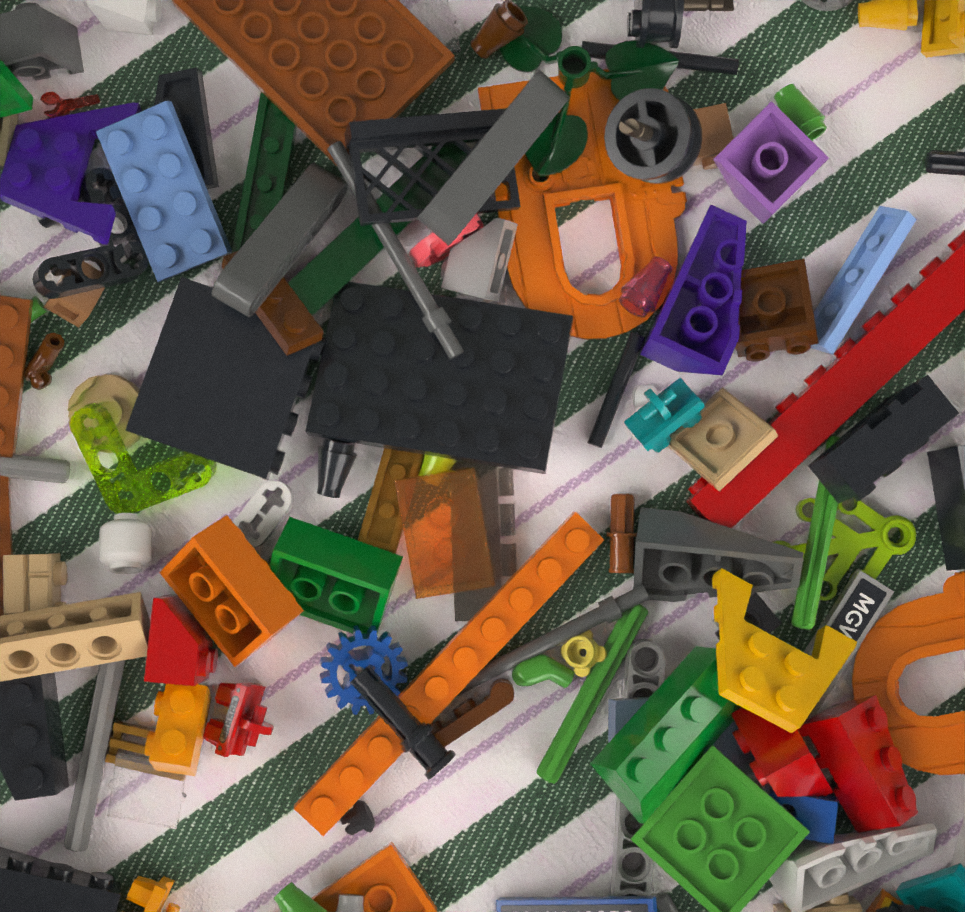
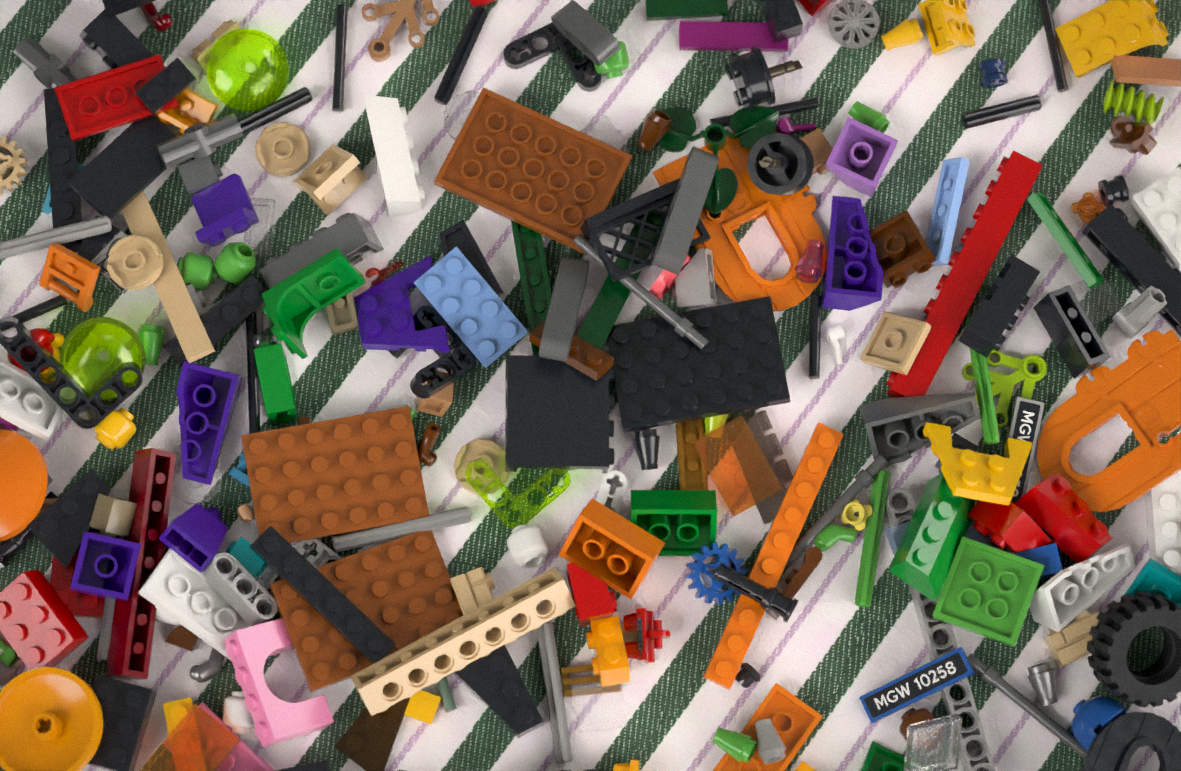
camera: 25 degrees left, 10 degrees down
(622, 533) = (853, 428): dark orange axle -> none
(665, 414) = (853, 339): teal hips -> none
(681, 87) = (785, 126): none -> magenta hand

